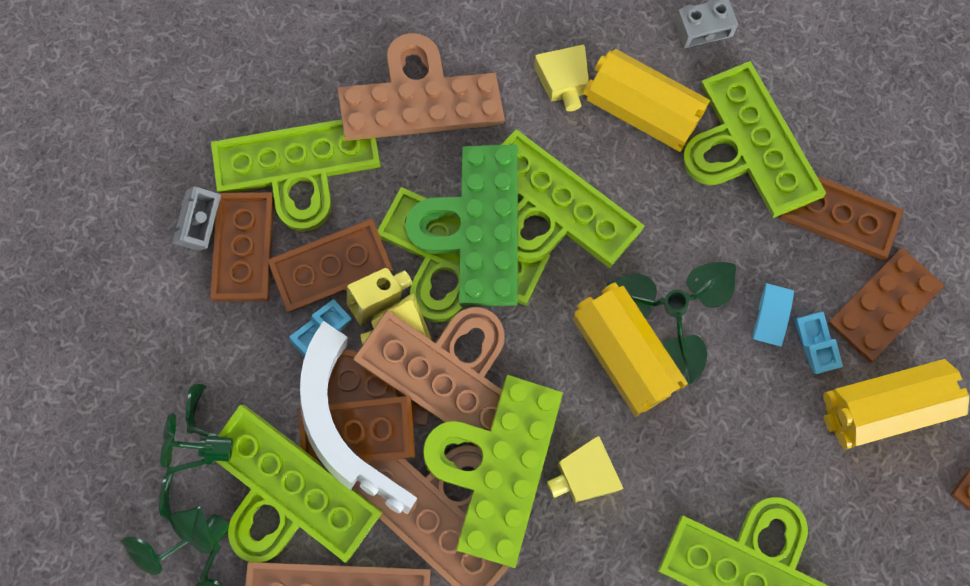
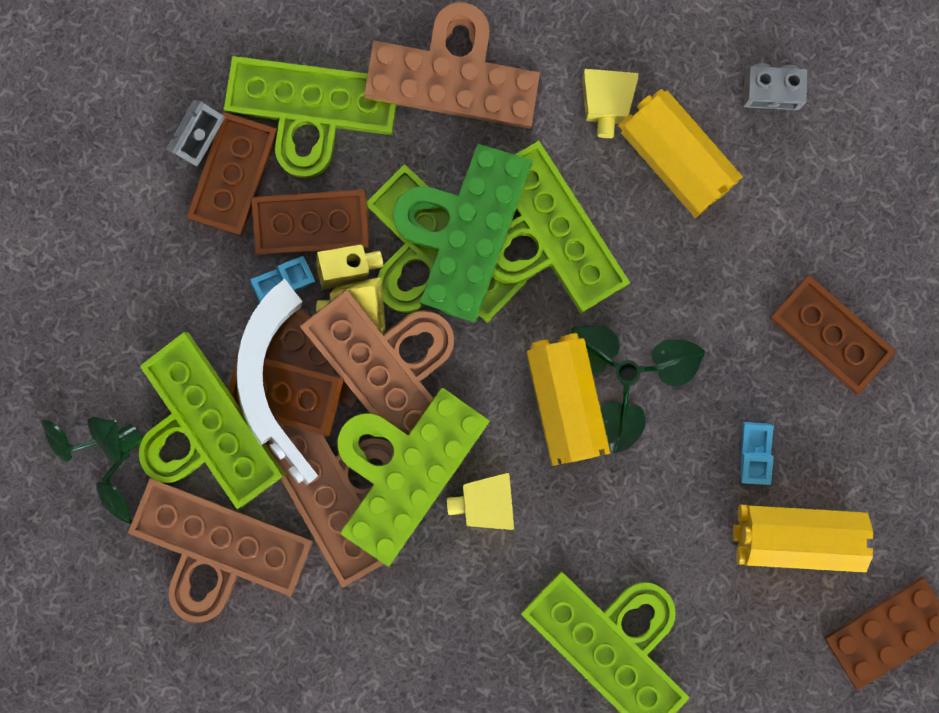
camera: 20 degrees right, 10 degrees up
(212, 448) = (144, 364): dark green plant -> none
(760, 139) = (780, 232): lime plate -> none
(773, 314) = (724, 412): medium azure slope -> none
(885, 305) = (839, 438): dark orange plate -> none

